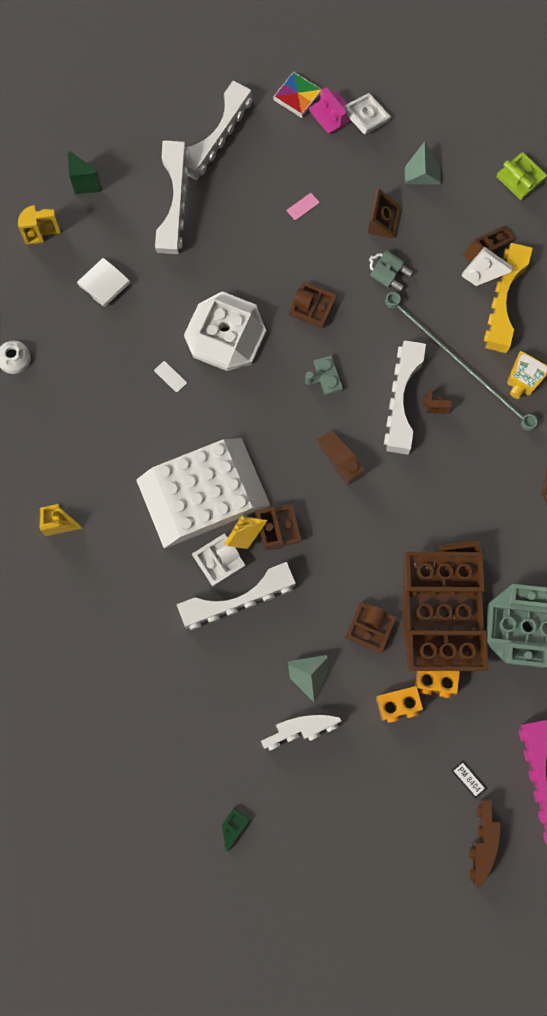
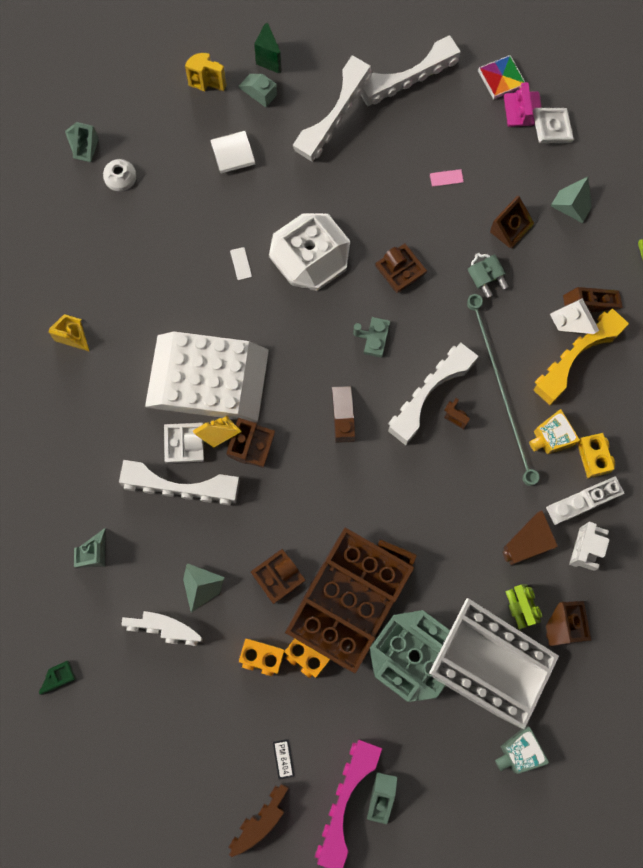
camera: 30 degrees right, 0 degrees up
(92, 213) = (259, 88): none -> sand green slope
(195, 702) = (91, 552): none -> sand green slope

